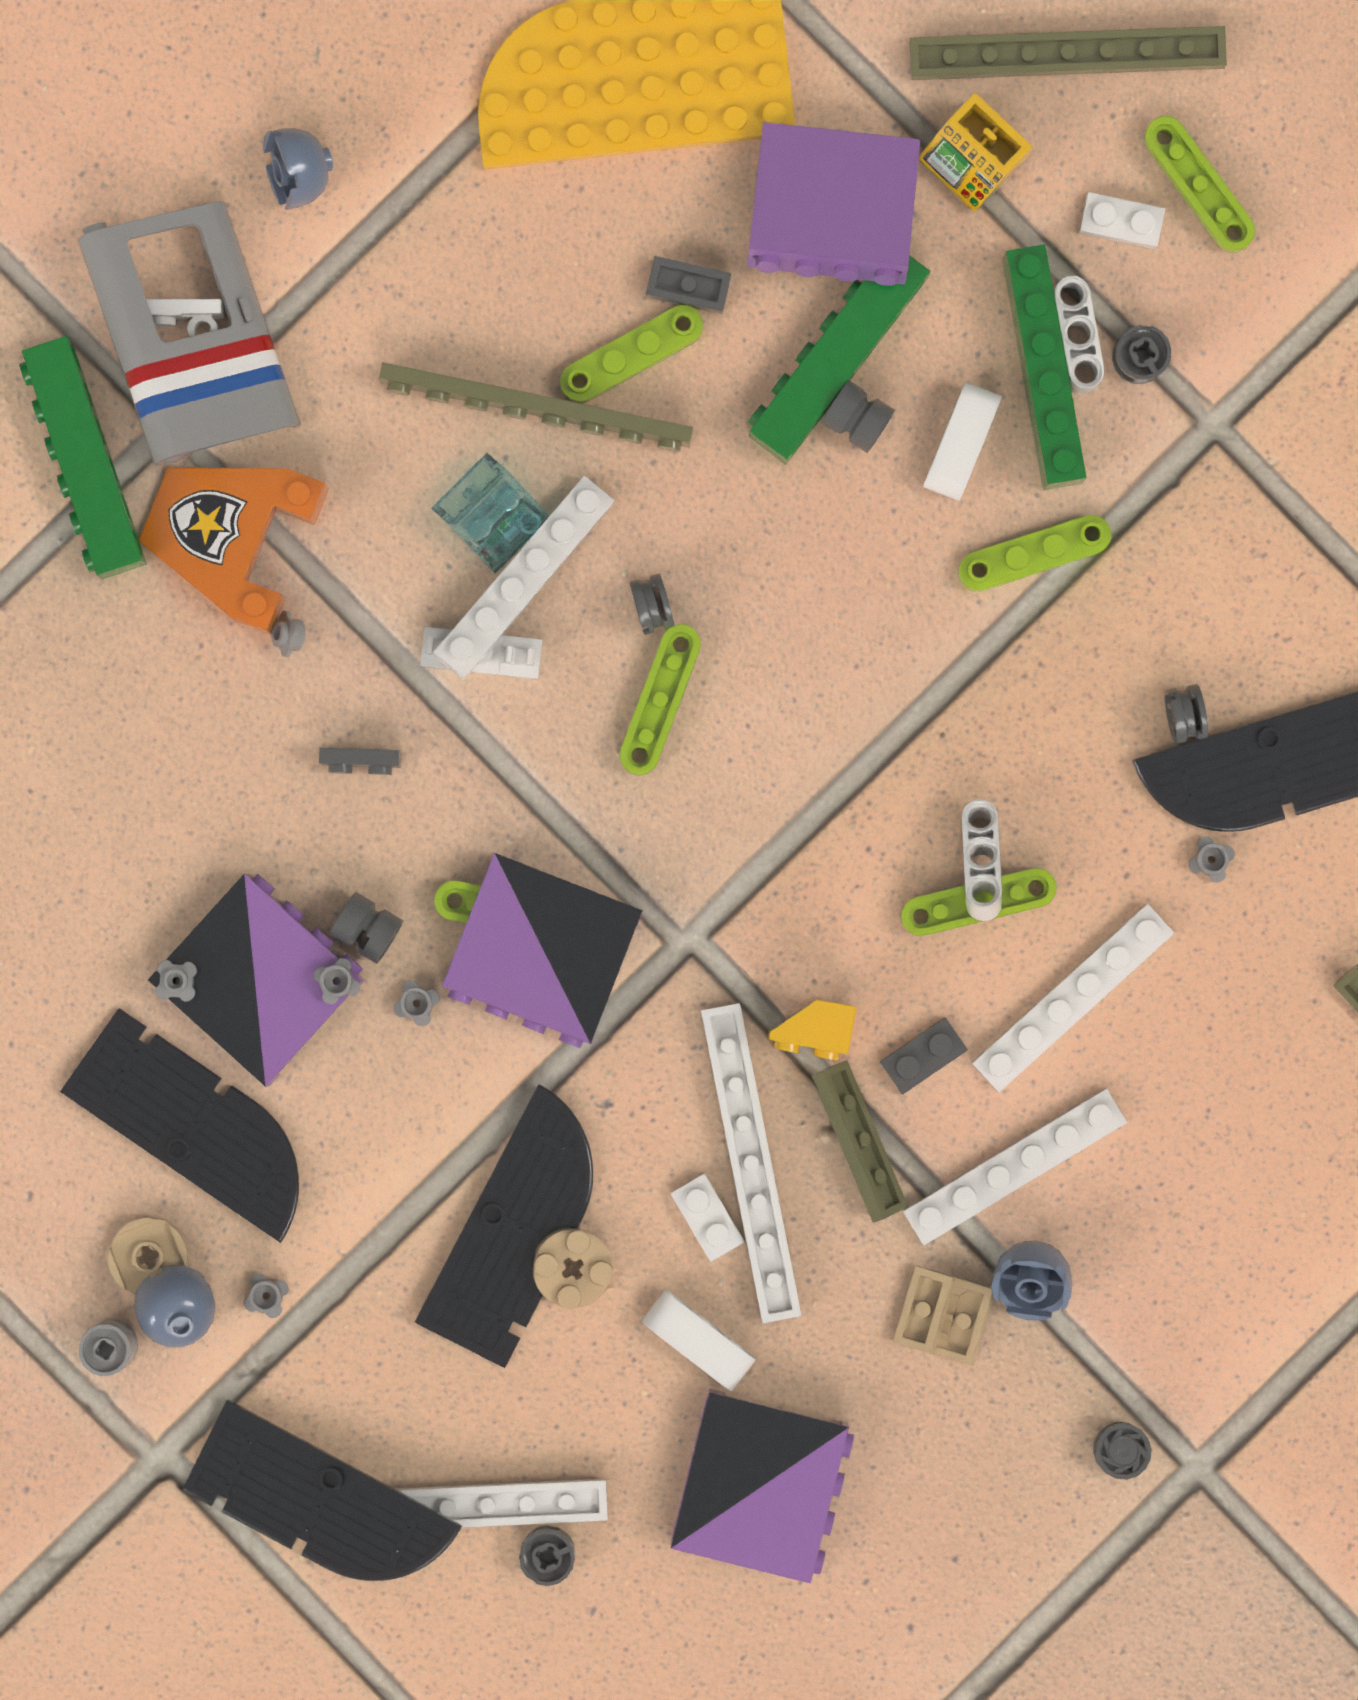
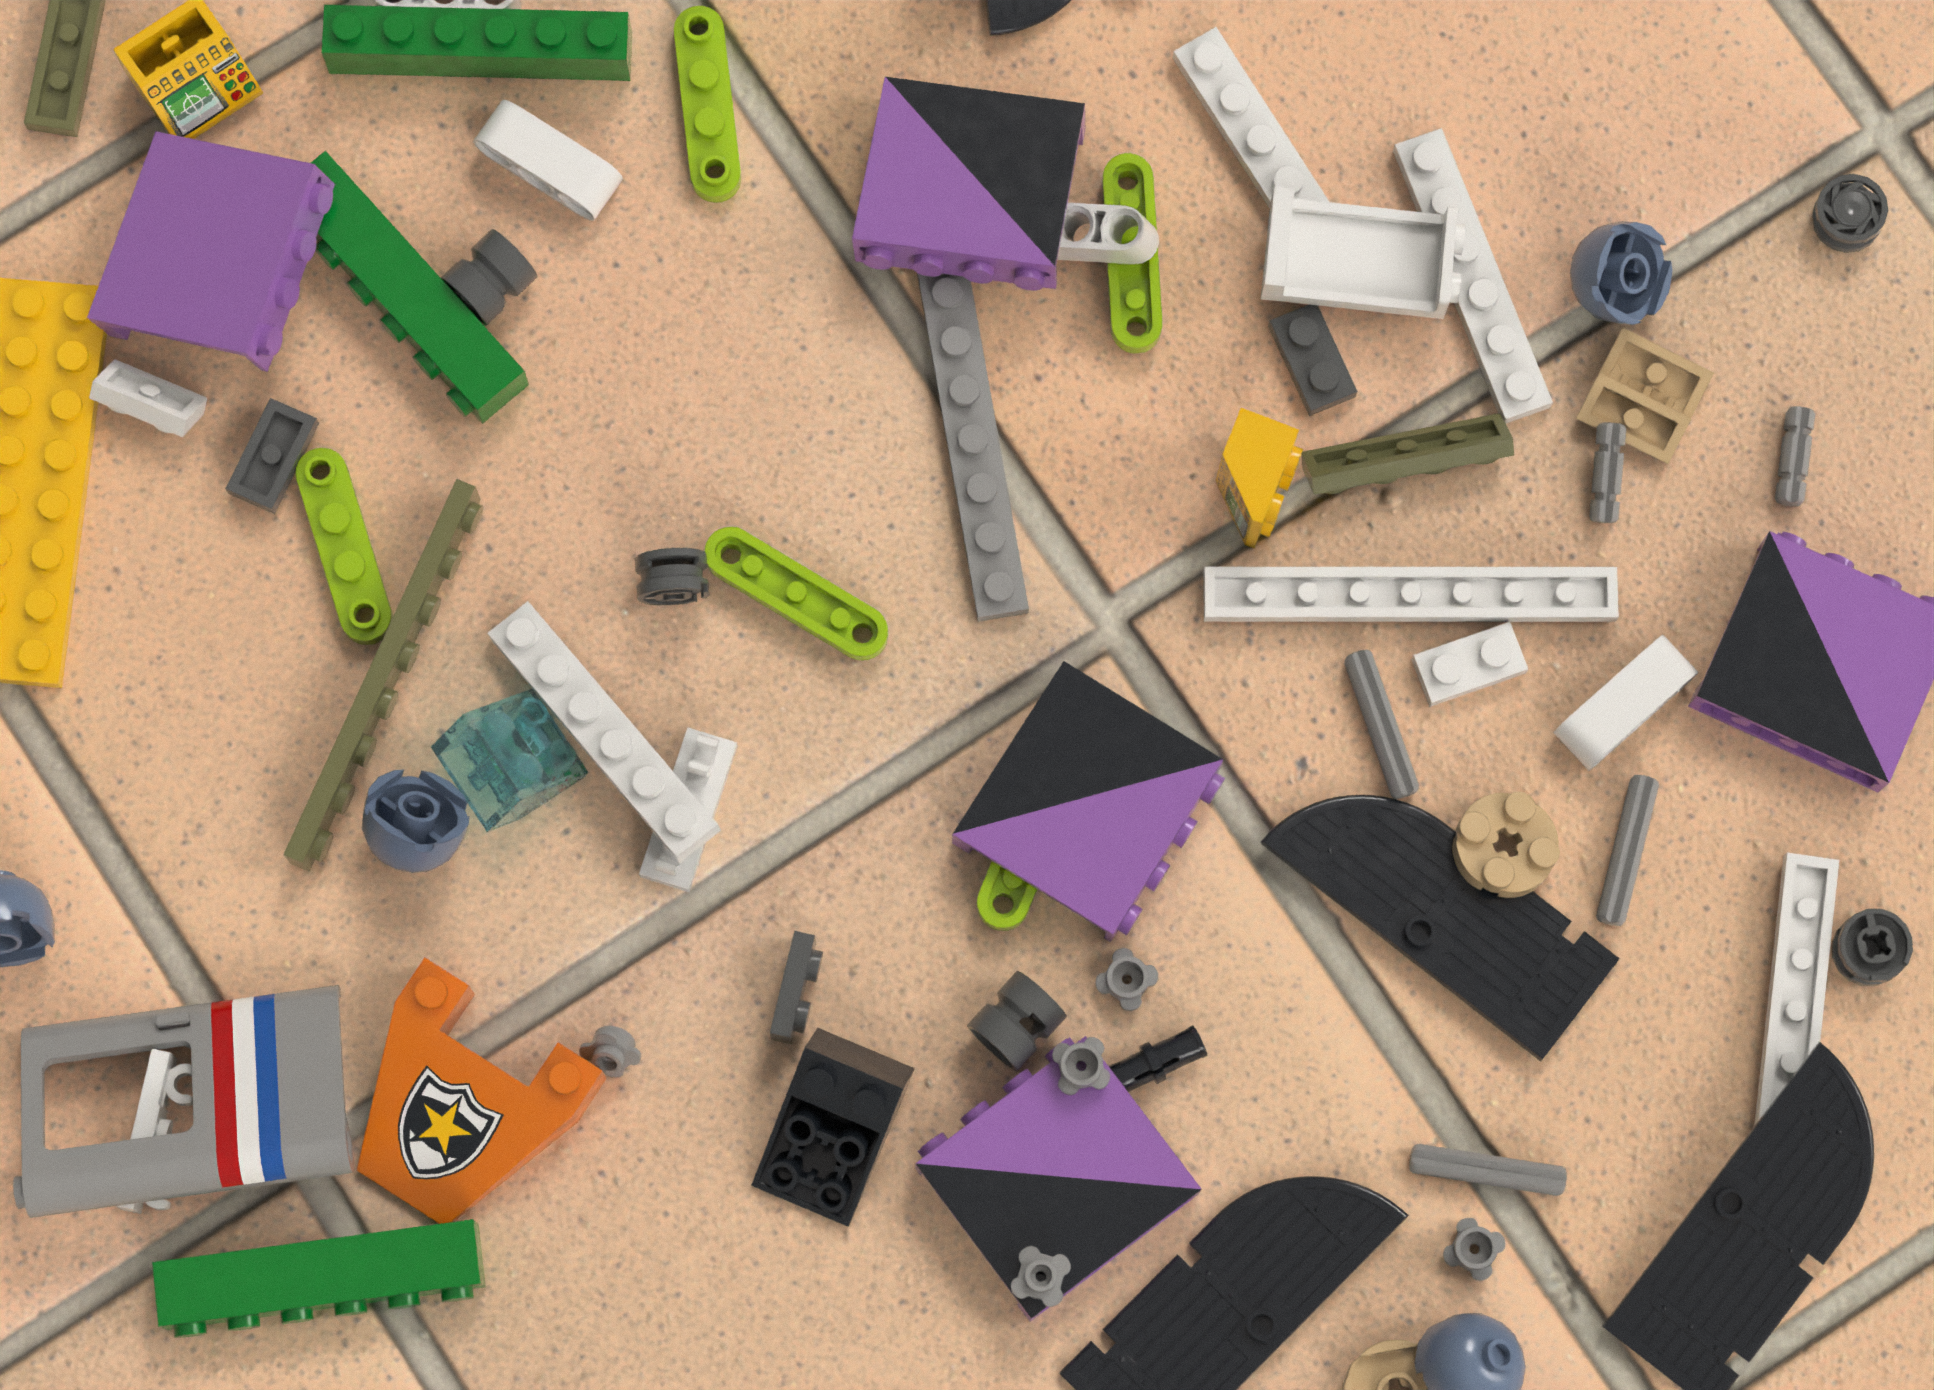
camera: 80 degrees left, 10 degrees down
(265, 807) = (832, 1126): none -> black slope
(326, 1296) = (1488, 1169): none -> light grey axle
(359, 1036) = (1159, 1059): none -> black pin
(427, 452) = (414, 820): none -> sand blue cylinder
(586, 1360) = (1627, 850): none -> light grey axle
(647, 1158) = (1381, 724): none -> light grey axle
(714, 182) = (148, 398): none -> white plate
(860, 788) = (973, 447): none -> light grey plate
(875, 1296) = (1607, 472): none -> light grey axle
(919, 1438) = (1795, 456): none -> light grey axle
(1003, 765) = (968, 183): none -> panel
(1006, 1078) = (1361, 256): none -> white panel

